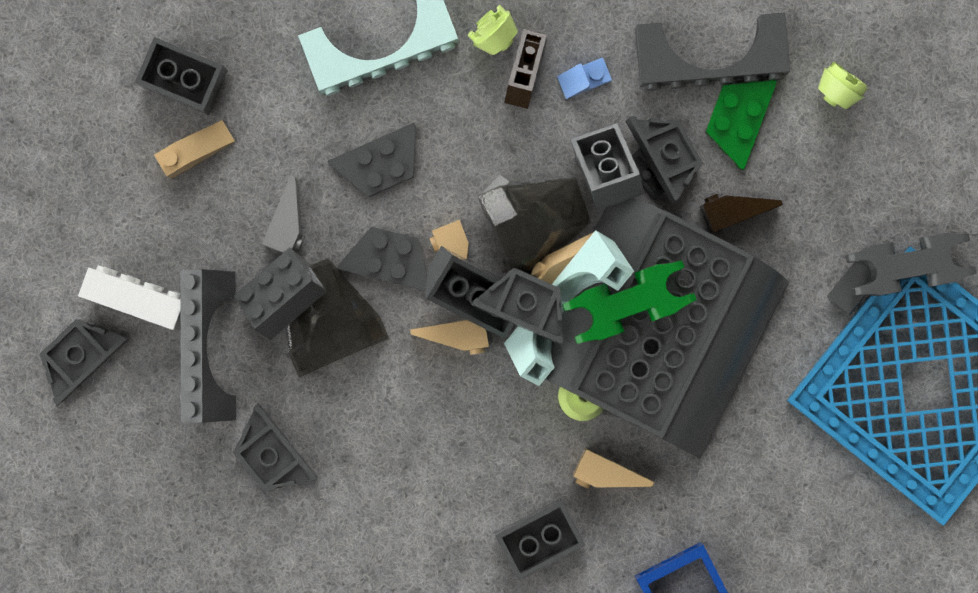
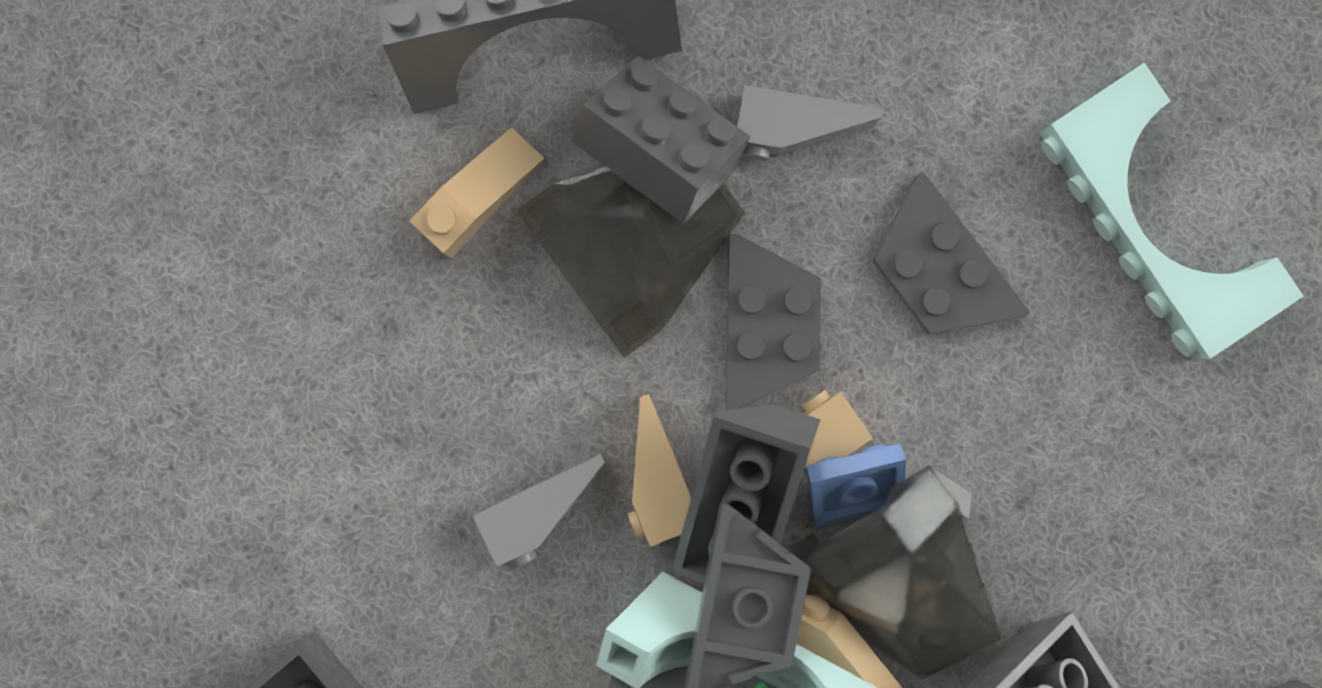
camera: 80 degrees right, 0 degrees up
(270, 454) = (365, 190): dark grey wing -> none
(285, 395) = (476, 192): none -> tan slope
(459, 404) = (527, 518): none -> light grey slope
(479, 236) = (854, 483): none -> medium blue plate
(494, 31) = (1237, 424): yellowish green cone -> none
(525, 69) = (1176, 496): dark brown slope -> none
(584, 78) = (1185, 606): light blue slope -> none

